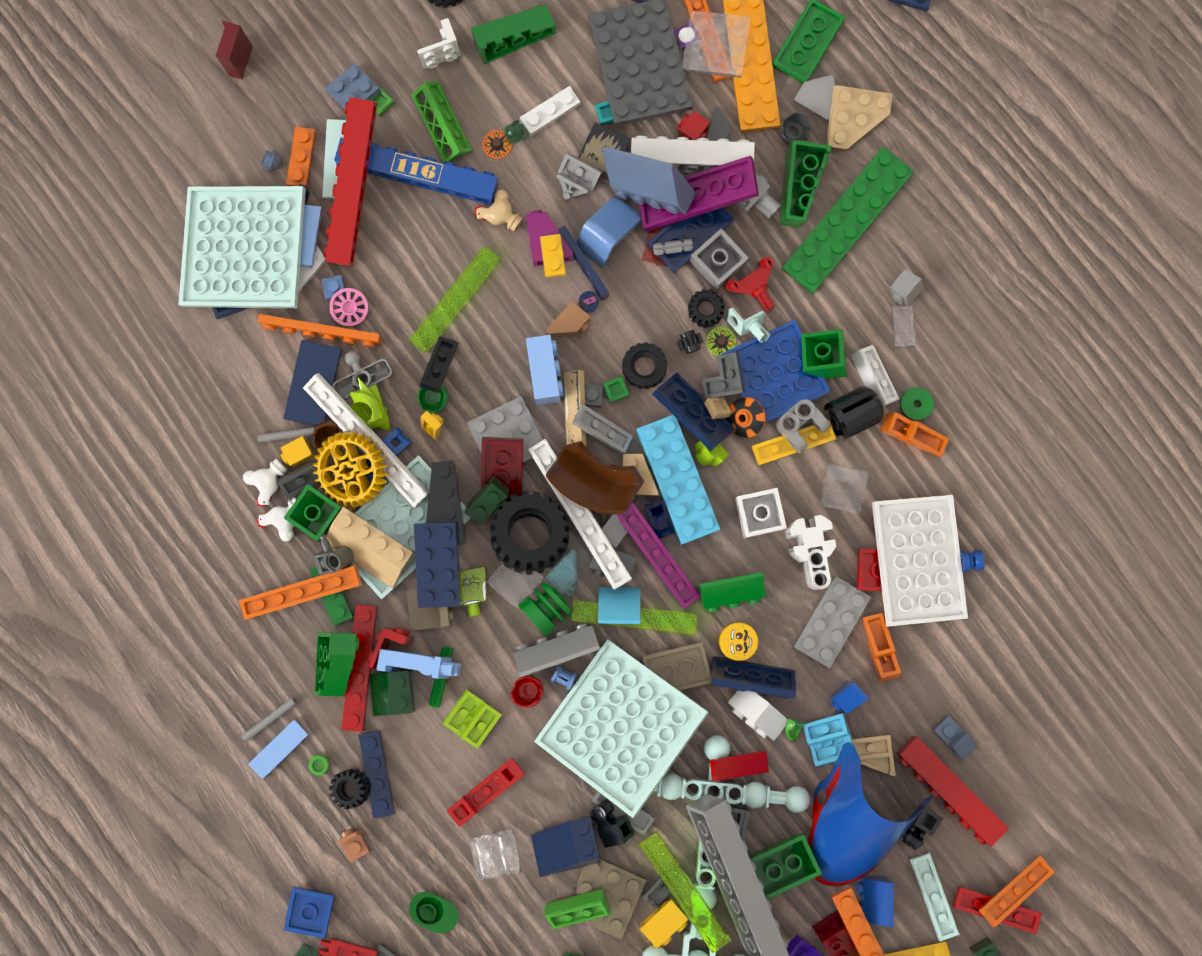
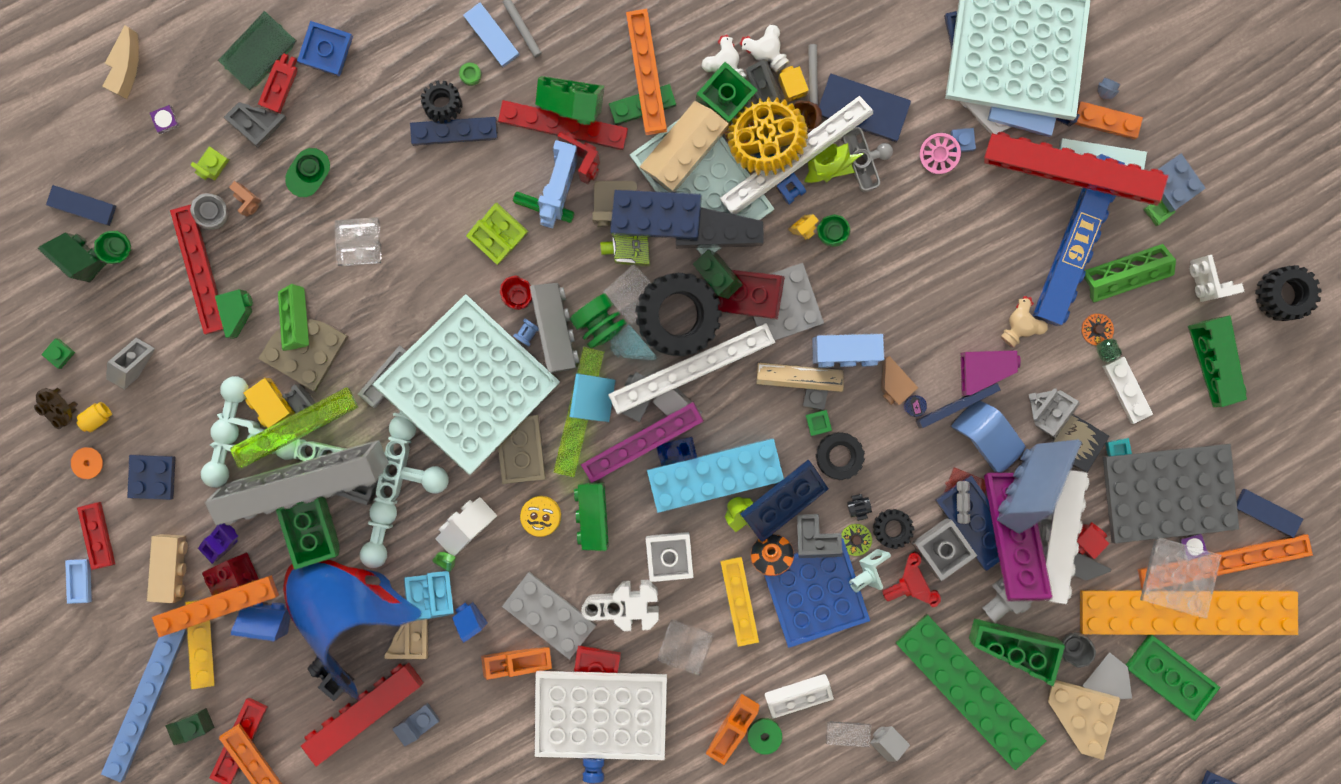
camera: 95 degrees right, 5 degrees up
(234, 50) = (1235, 59): dark red container -> none
(311, 329) = (920, 111): orange plate -> none
(332, 559) = (676, 106): dark grey piece -> none
(353, 844) = (386, 100): nougat bracket -> none
(392, 693) = (532, 155): dark green slope -> none
(439, 364) = (866, 240): black plate -> none
(454, 299) = (935, 265): clear neon green plate -> none
(485, 792) = (421, 238): red slope -> none
(552, 256) = (968, 373): yellow plate -> none
(566, 847) = (355, 314): dark blue slope -> none
(591, 483) = (720, 386): reddish brown panel -> none
(602, 429) = (777, 403): light grey plate -> none
(611, 829) = (367, 361): black brick -> none
(642, 465) = (723, 434): tan wing -> none
(718, 407) = (786, 527): tan tile -> none
(739, 765) = (414, 499): red tile -> none
(753, 677) = (501, 526): dark blue plate -> none
(798, 420) = (761, 609): light grey piece -> none
(824, 354) = (829, 647): green slope -> none
(855, 412) = (763, 670): black cylinder -> none
(934, 896) = (260, 680): light aqua tile -> none

